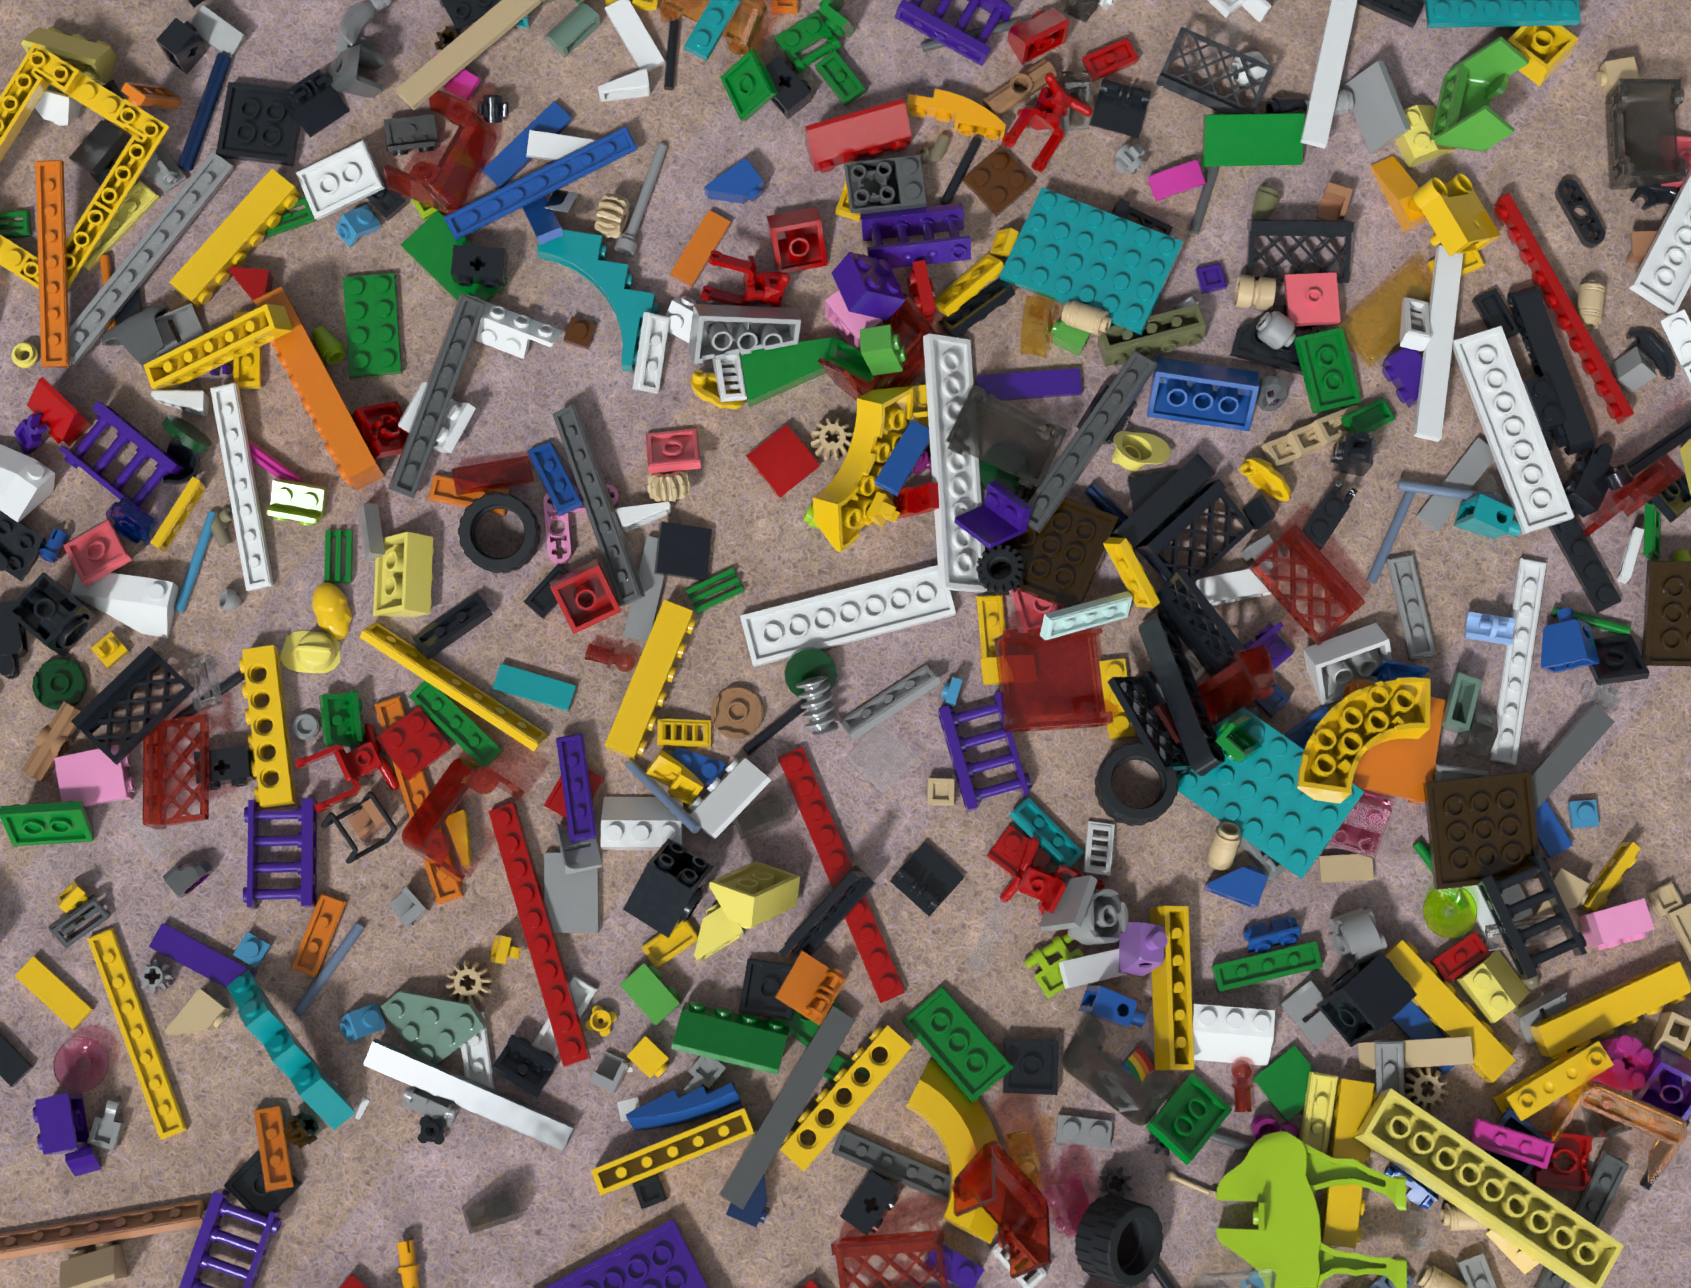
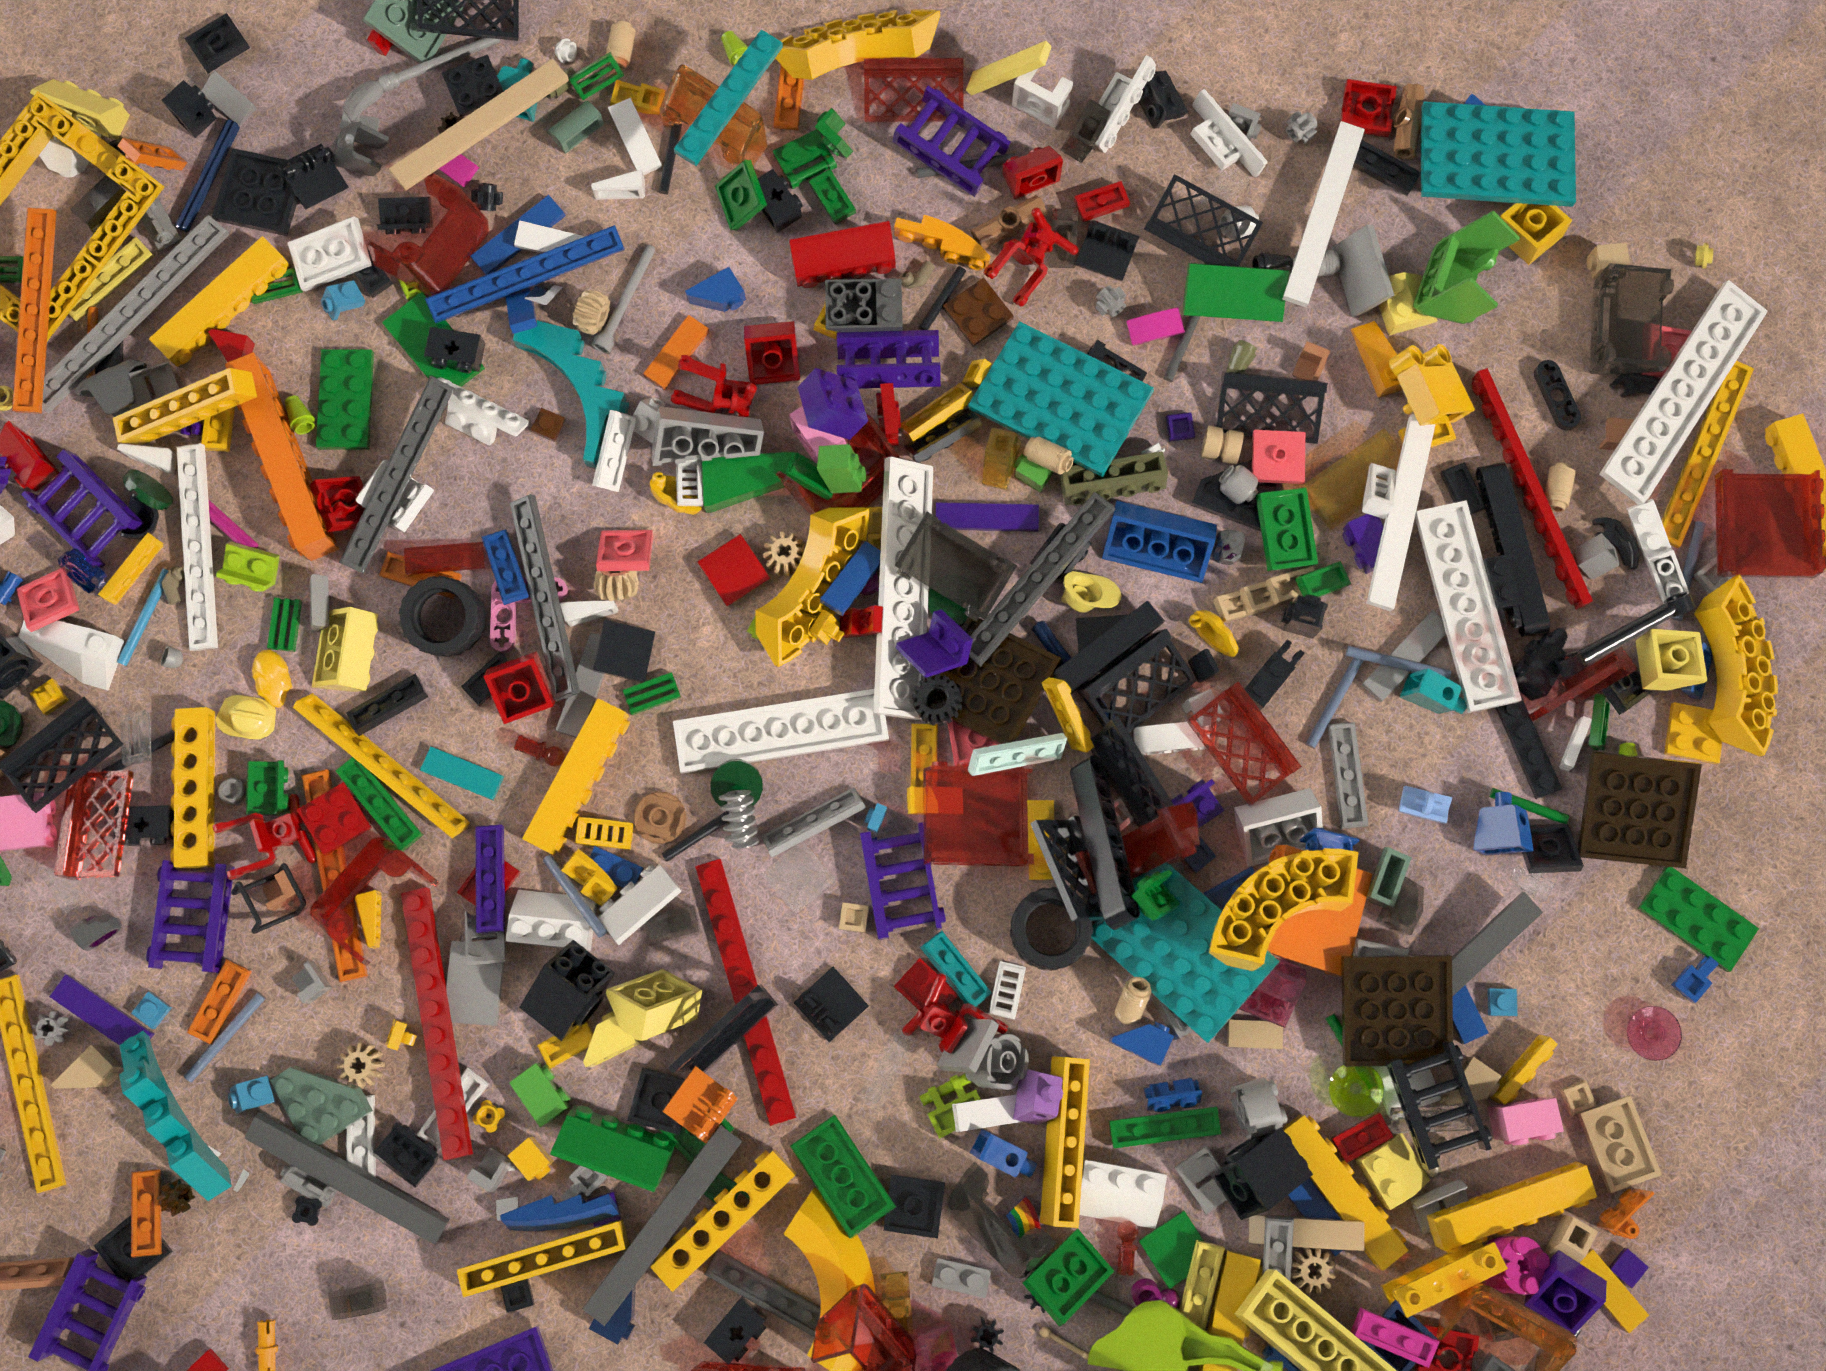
camera: 10 degrees right, 0 degrees up
(1518, 661) = (1451, 840): white tile -> none

